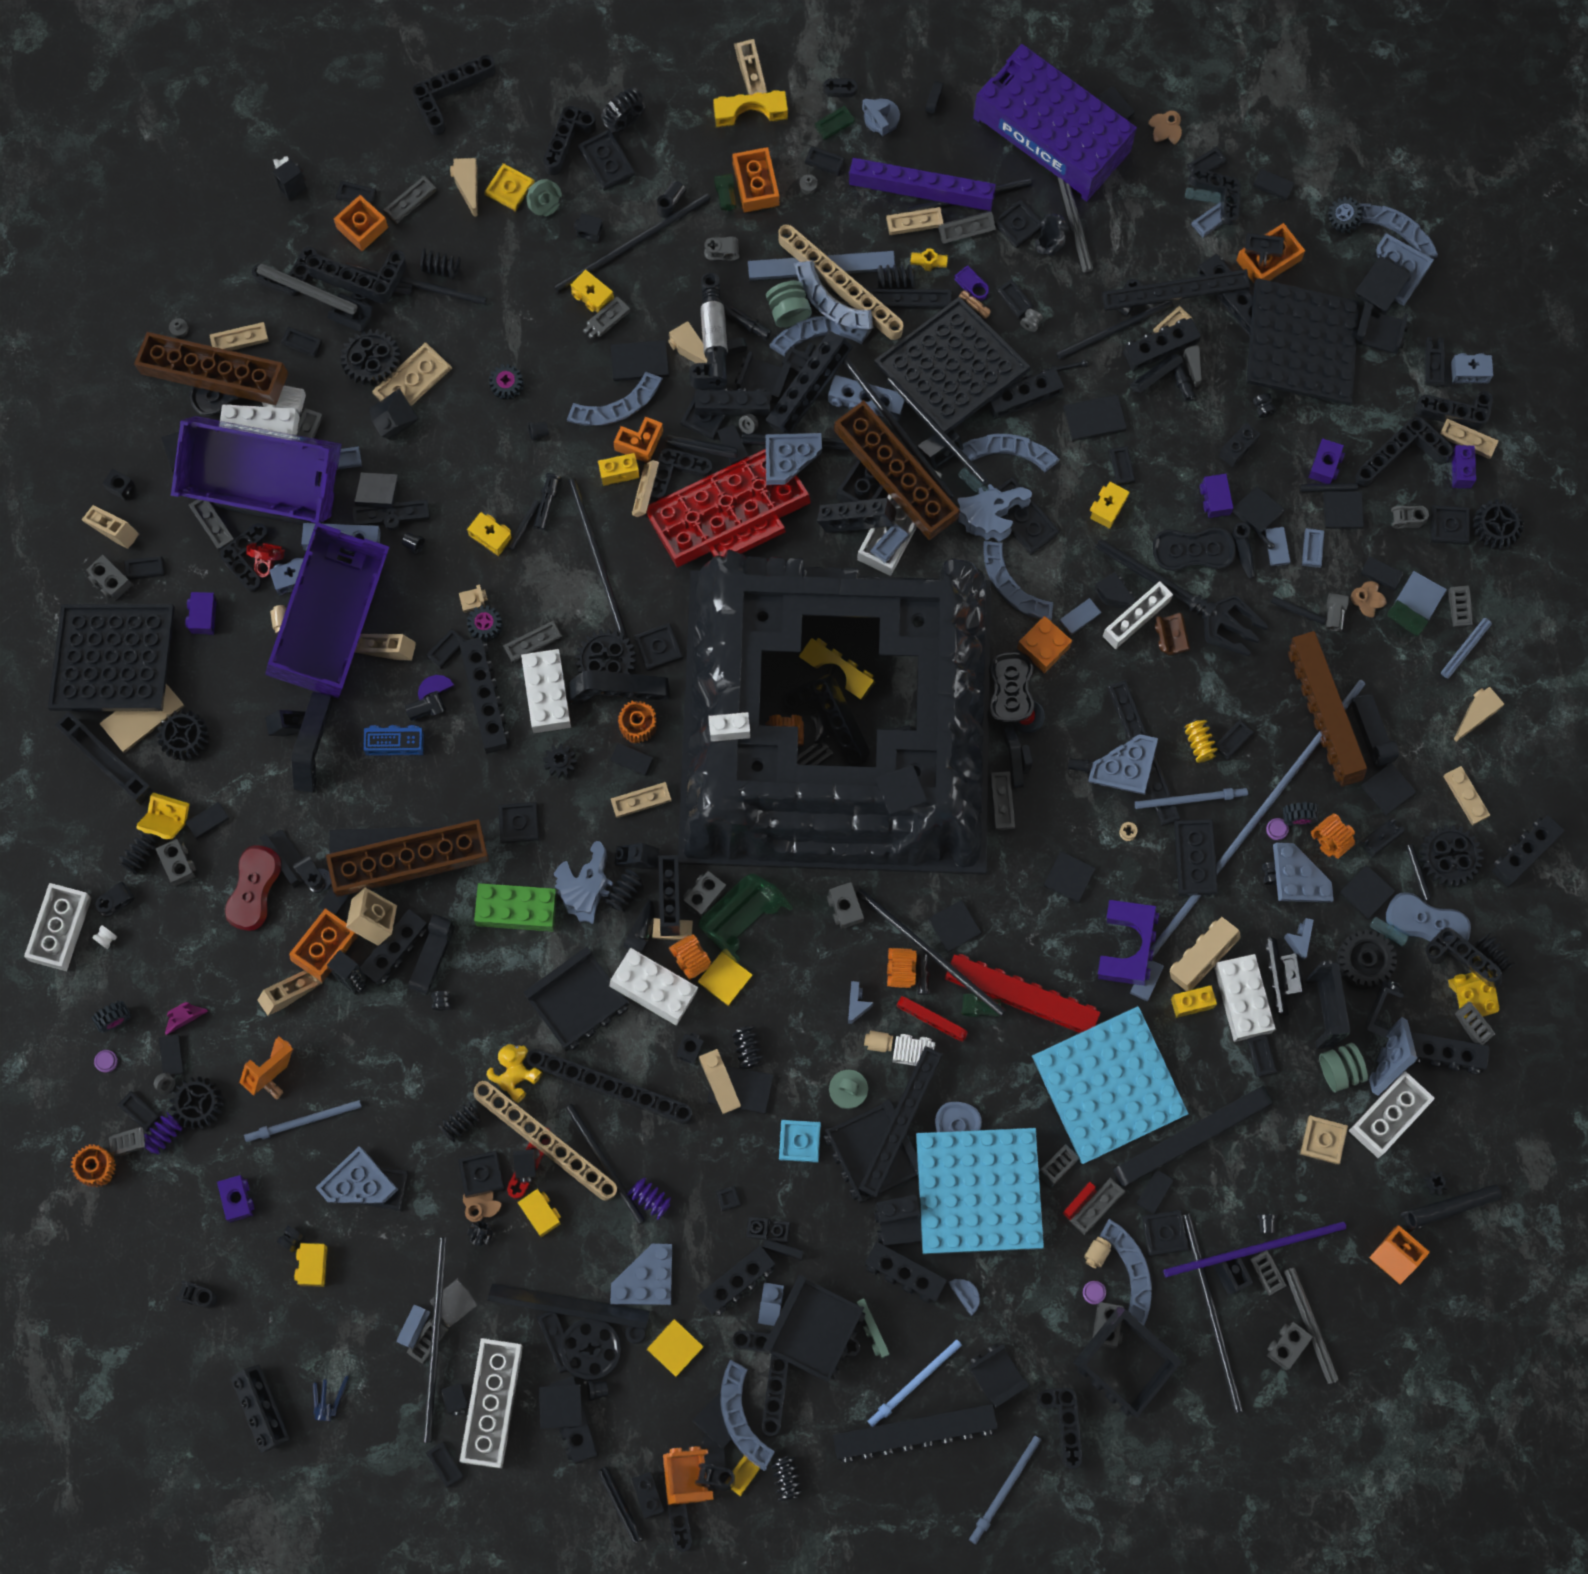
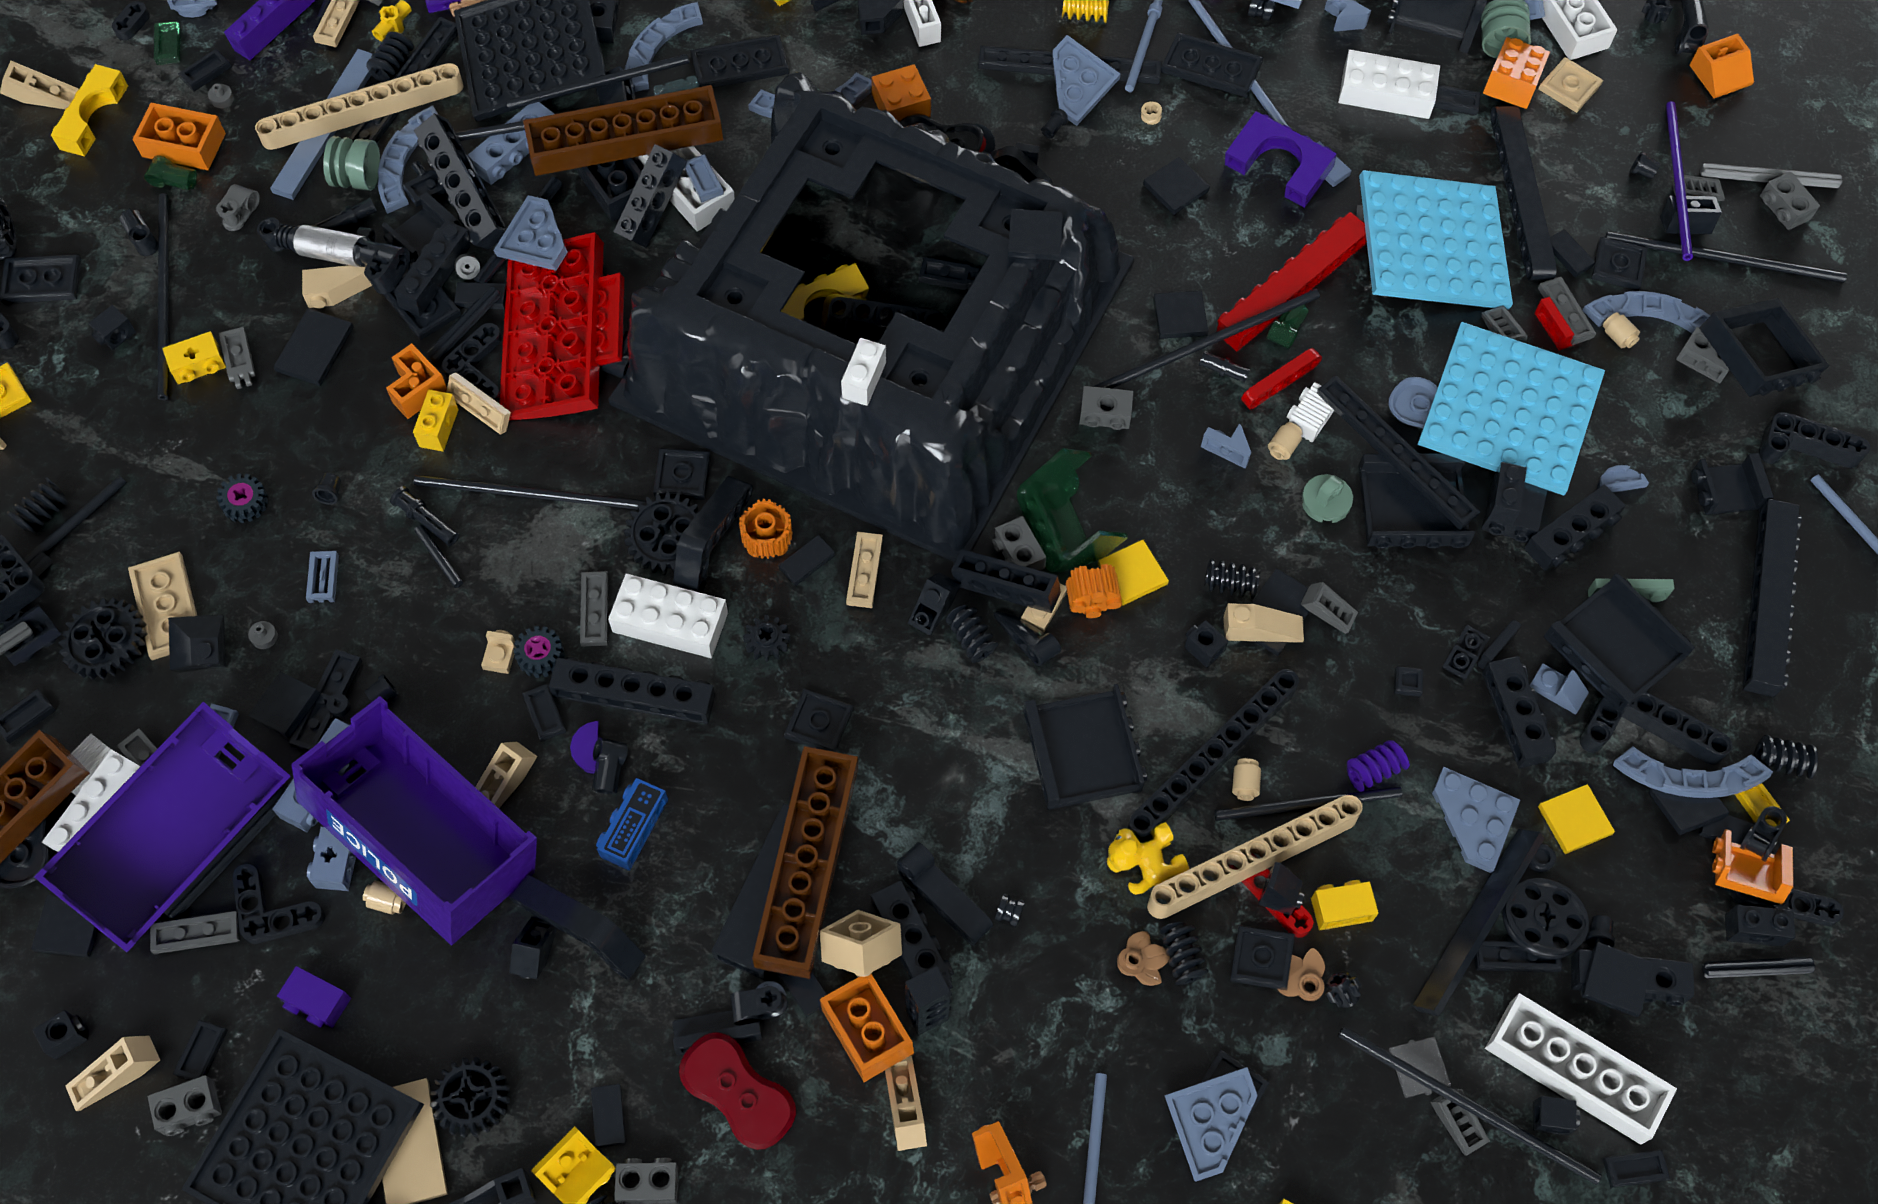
camera: 65 degrees left, 10 degrees down
(265, 554) = (285, 876): red tile -> none
(413, 1326) = (1437, 1130): sand blue tile -> none
(419, 449) = (263, 635): none -> dark grey tile
(449, 1100) = (1147, 959): none -> medium nougat plate
(459, 462) = (311, 583): none -> sand blue tile
(494, 542) = (421, 607): yellow brick -> none
(515, 907) = (930, 767): bright green brick -> none
(543, 197) = (36, 356): sand green tile -> none
(584, 893) = (952, 678): sand blue animal -> none
(601, 1115) = (1246, 779): none -> tan brick
(618, 410) = (360, 395): sand blue tile -> none
(653, 986) = (1110, 649): white brick -> none
(762, 1108) = (1314, 602): none -> dark grey slope
(799, 1141) = (1370, 573): medium azure plate -> none
(826, 303) = (381, 128): sand blue tile -> none
(885, 1409) = (1731, 616): light blue bar -> none
(901, 968) = (1211, 377): orange brick -> none
(983, 511) = (729, 85): sand blue animal -> none
(1080, 616) = (885, 54): sand blue tile -> none
(1094, 1292) = (1662, 356): medium lavender piece -> none
(1193, 1001) = (1373, 129): yellow brick -> none
(1204, 954) = (1326, 96): tan brick -> none
(1286, 975) = (1377, 39): black bracket -> none
(1301, 1091) = (1516, 72): none -> orange brick

